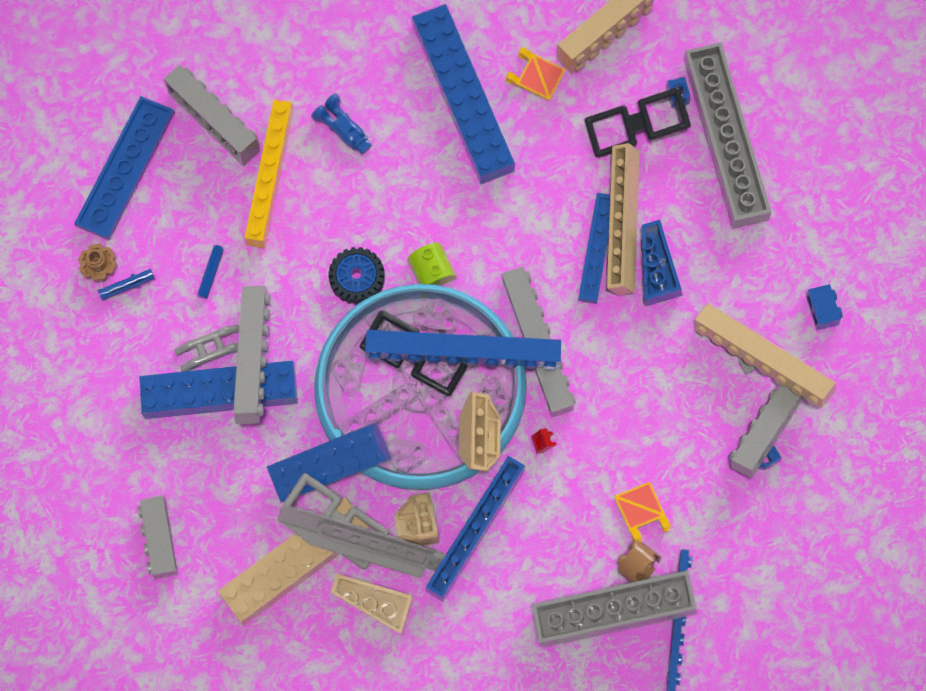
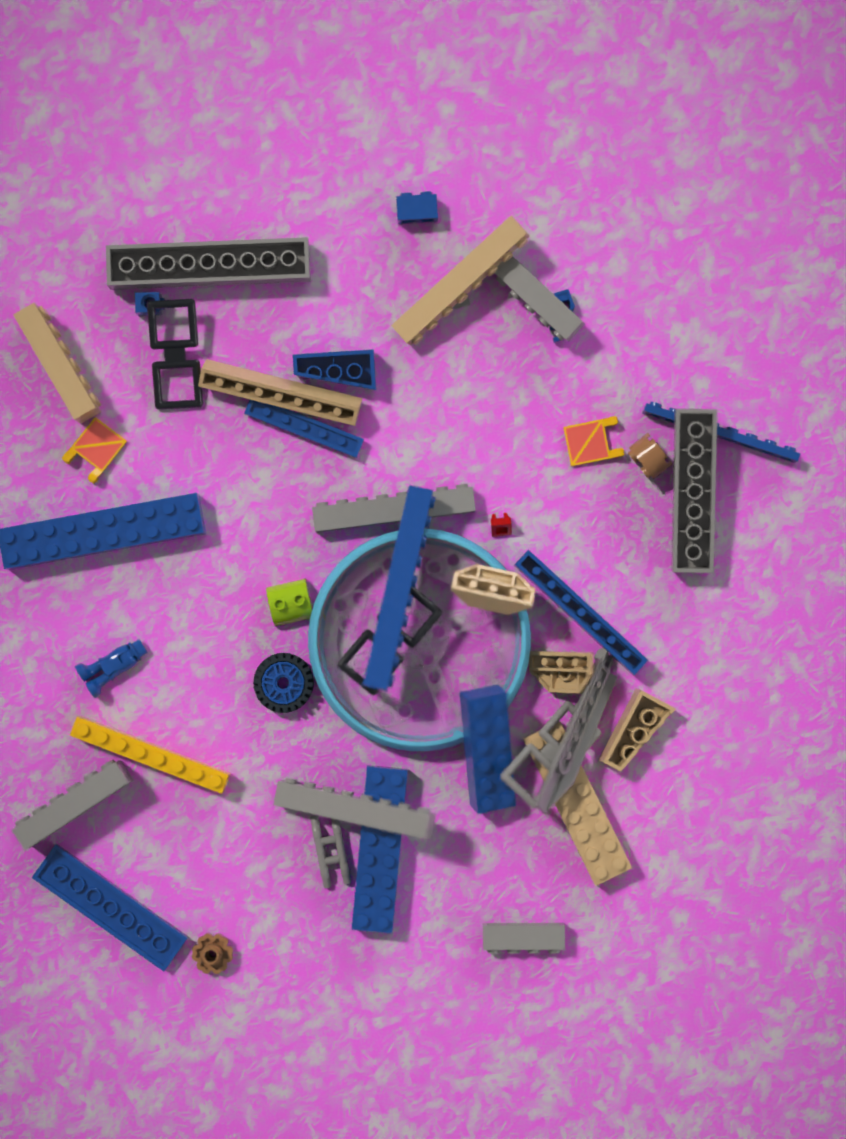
camera: 80 degrees left, 15 degrees up
(126, 284) = (240, 917): blue pin -> none
(210, 271) = (246, 835): blue axle -> none

